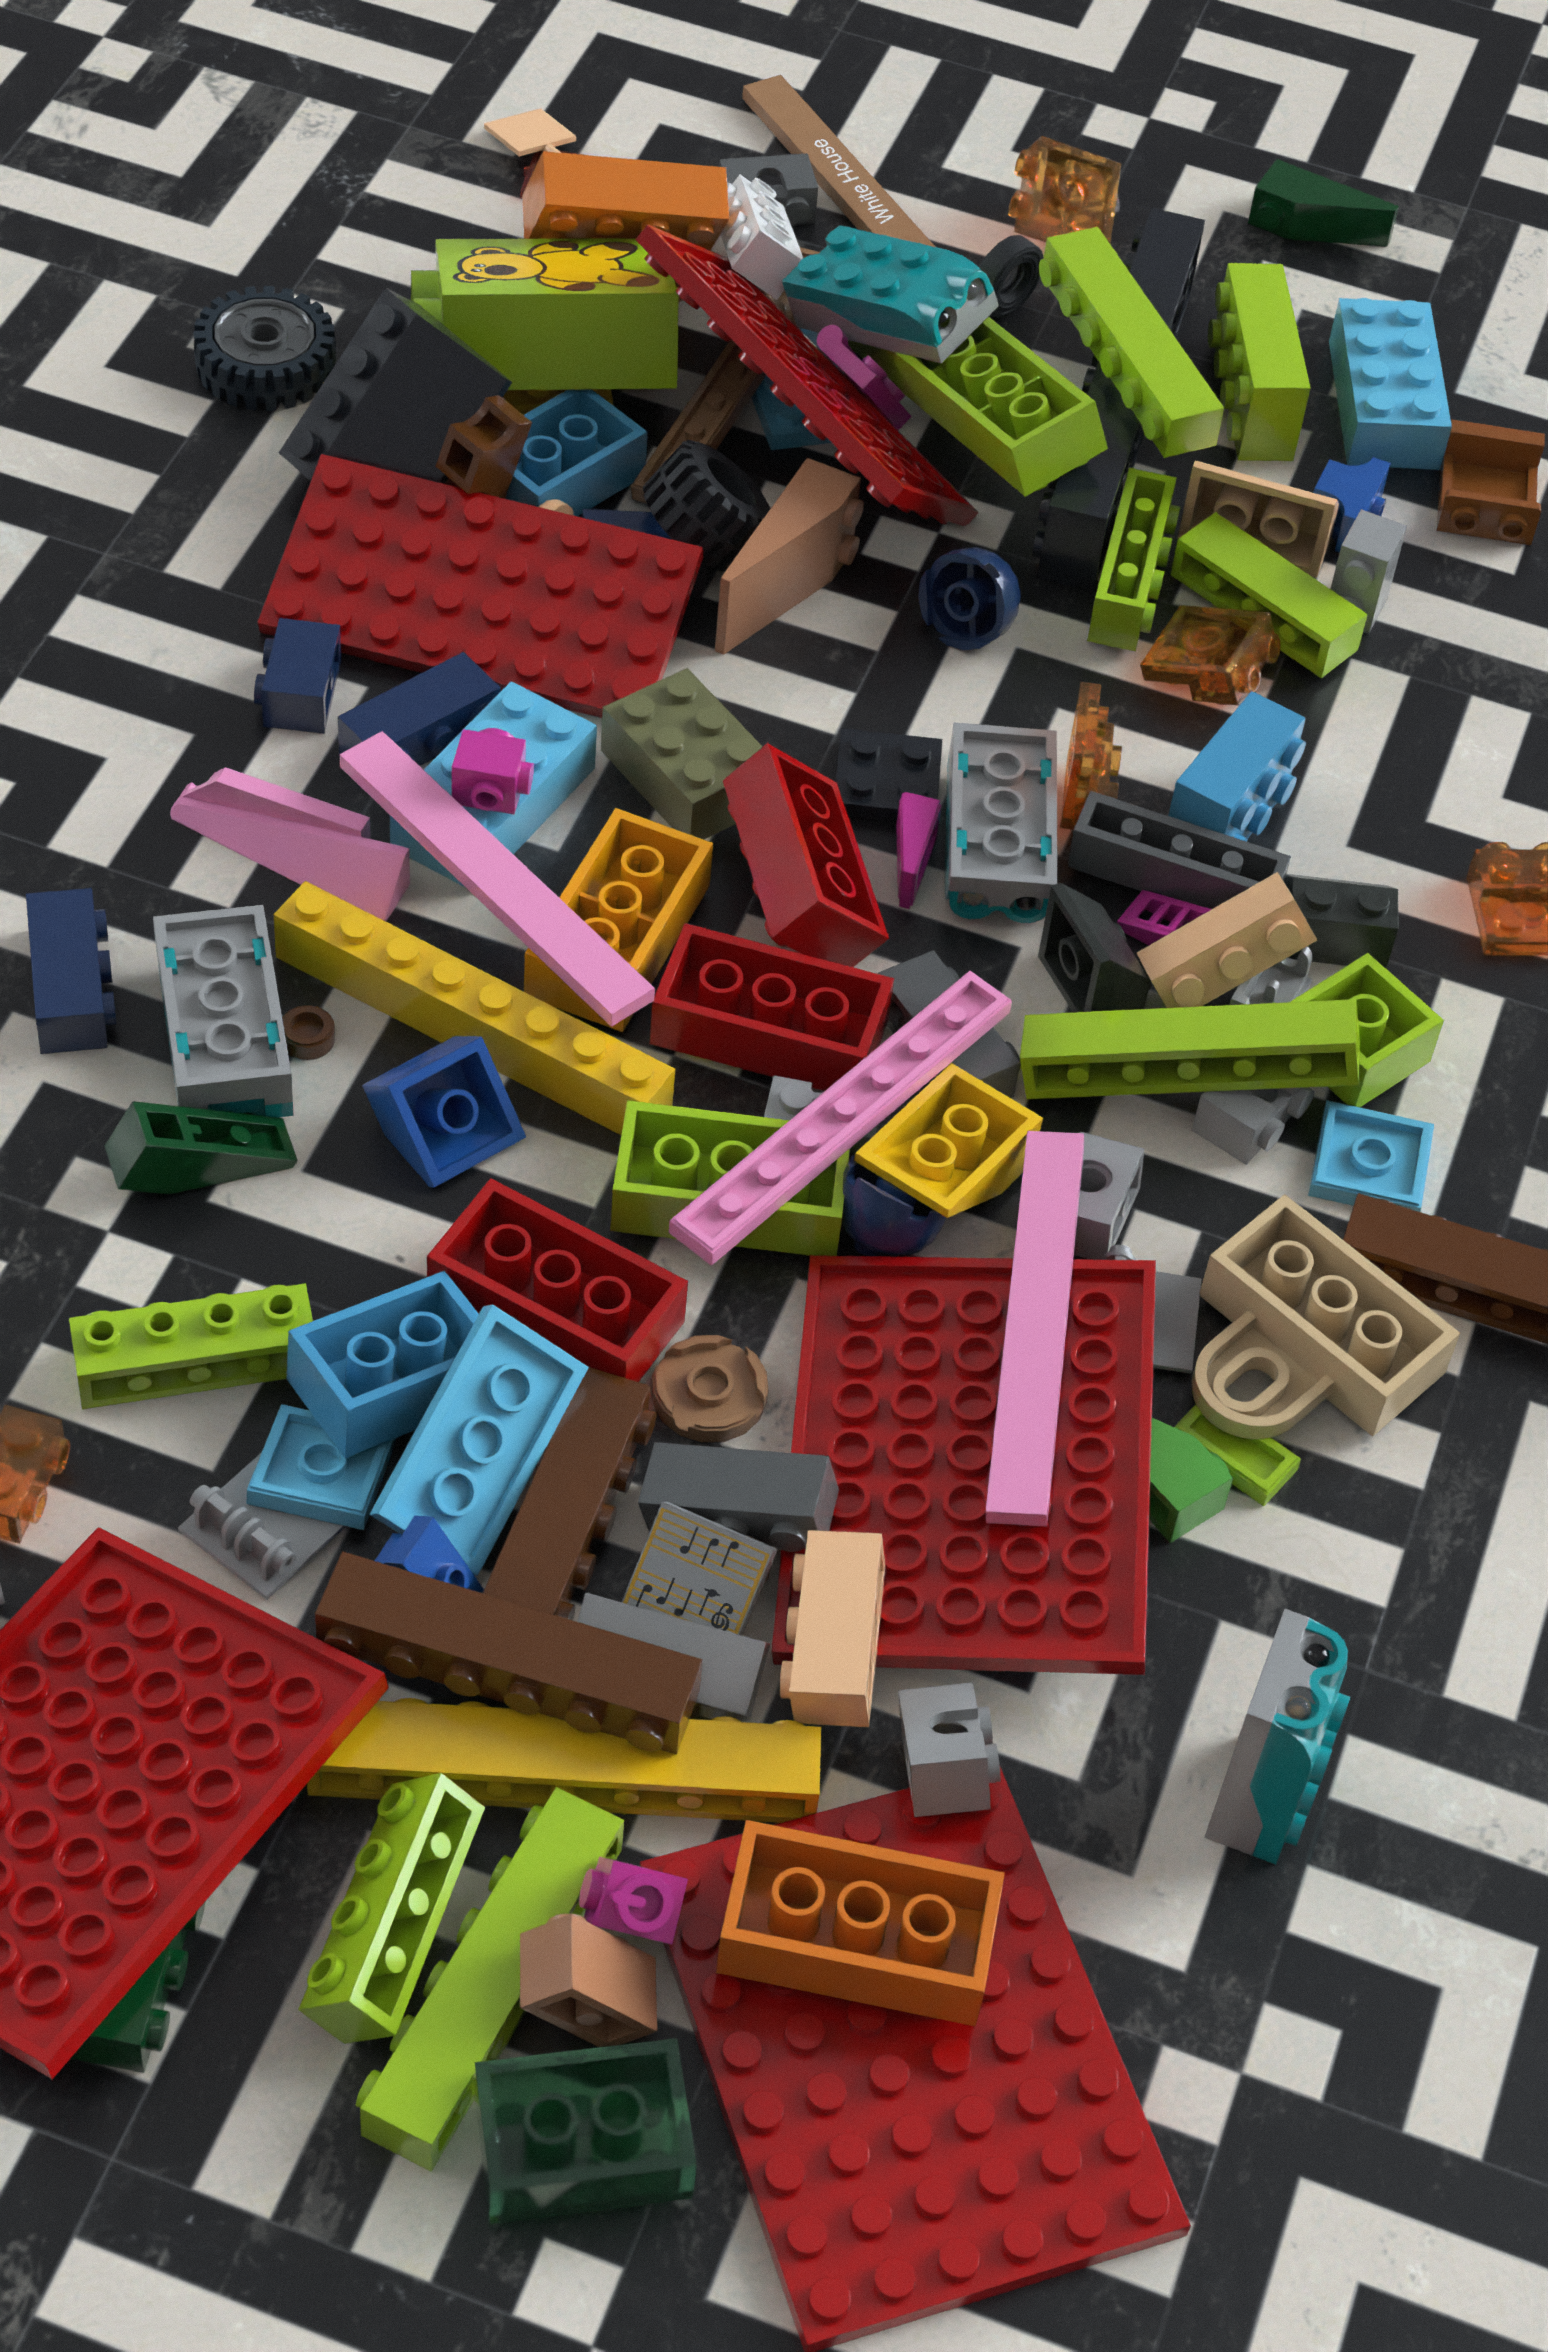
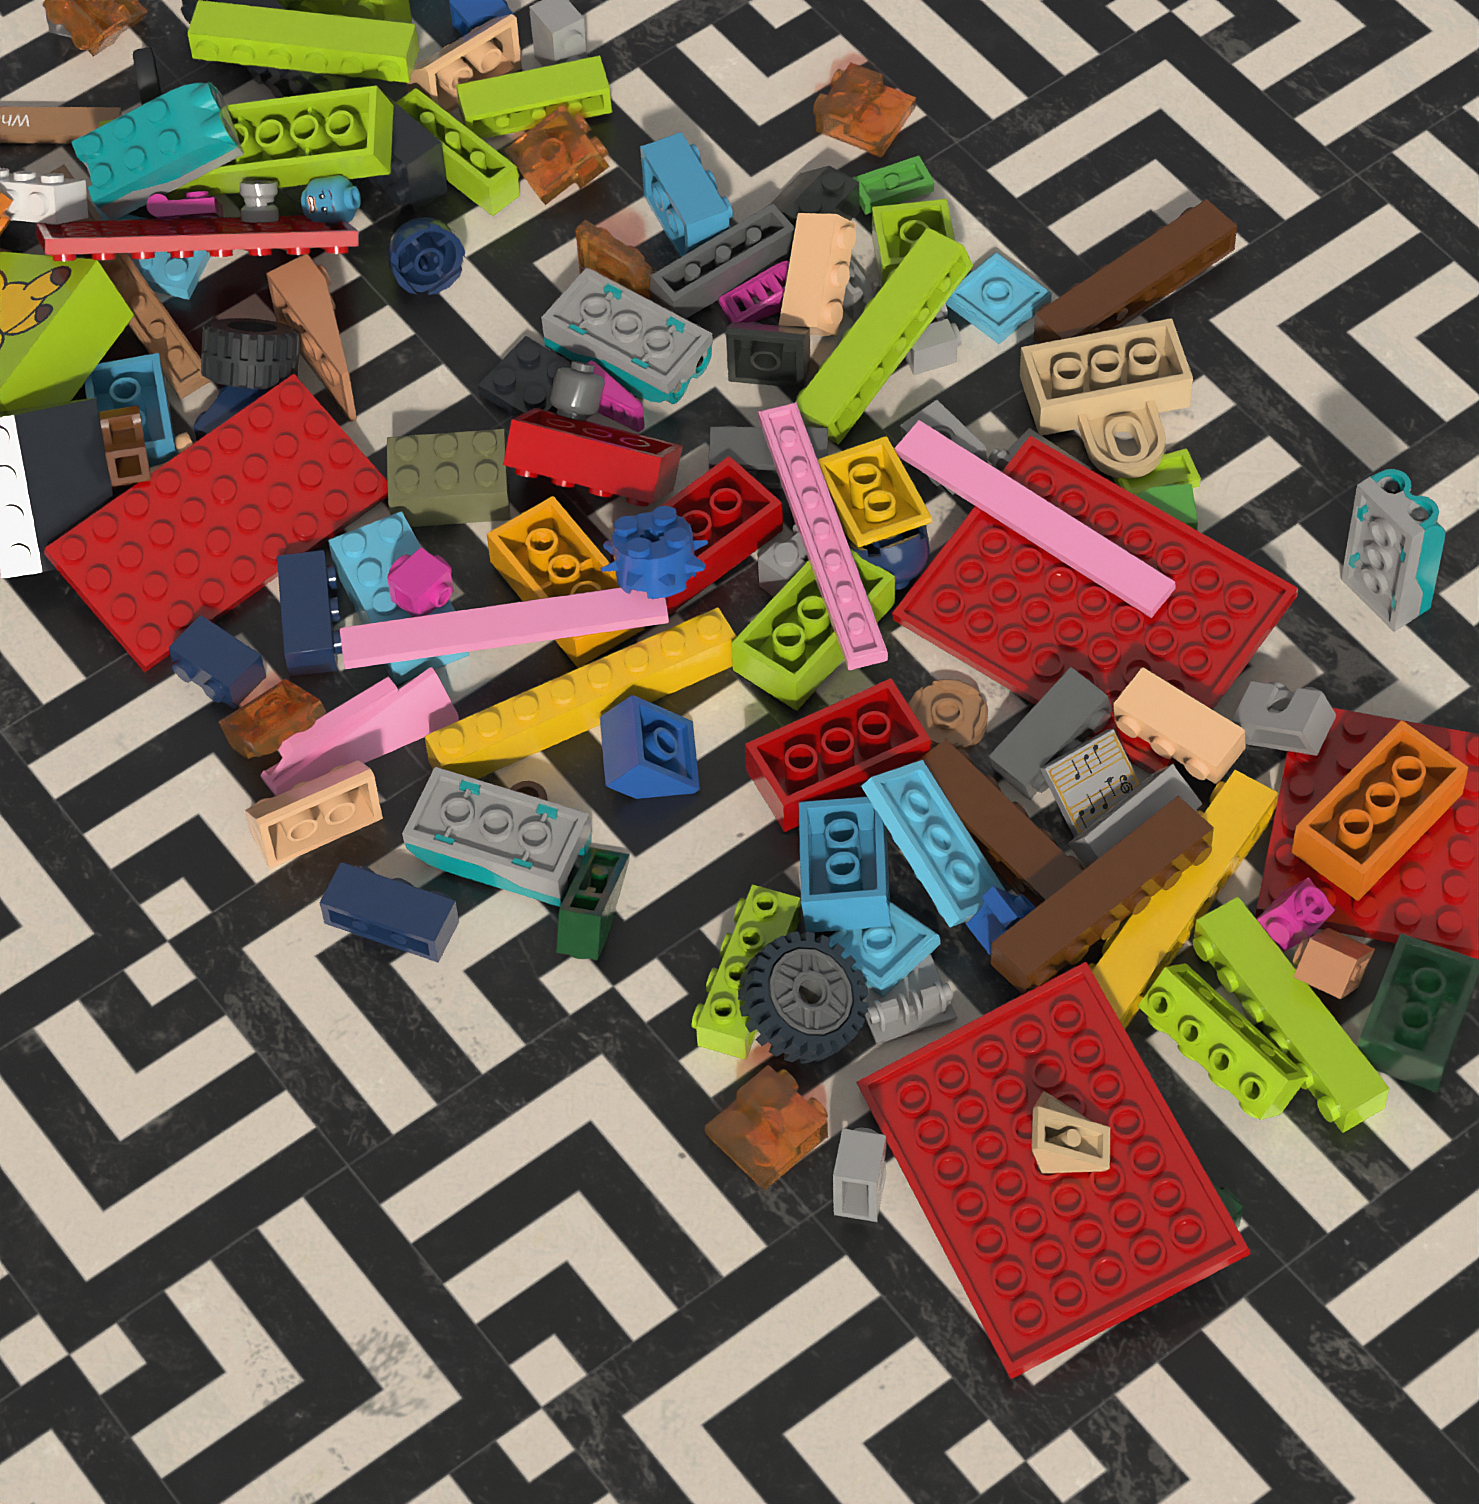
camera: 50 degrees left, 5 degrees up
(106, 1763) = (1067, 1139): none -> tan slope
(150, 841) = (314, 813): none -> light nougat slope
(163, 1359) = (780, 1014): none -> wheel
(244, 745) = (271, 719): none -> clear orange plate
(674, 951) = (654, 553): none -> blue brick
(877, 800) = (577, 391): none -> dark grey head
(906, 416) = (259, 201): none -> light grey wheel
(959, 473) = (330, 200): none -> dark azure head
(1444, 976) = (894, 184): none -> bright green plate

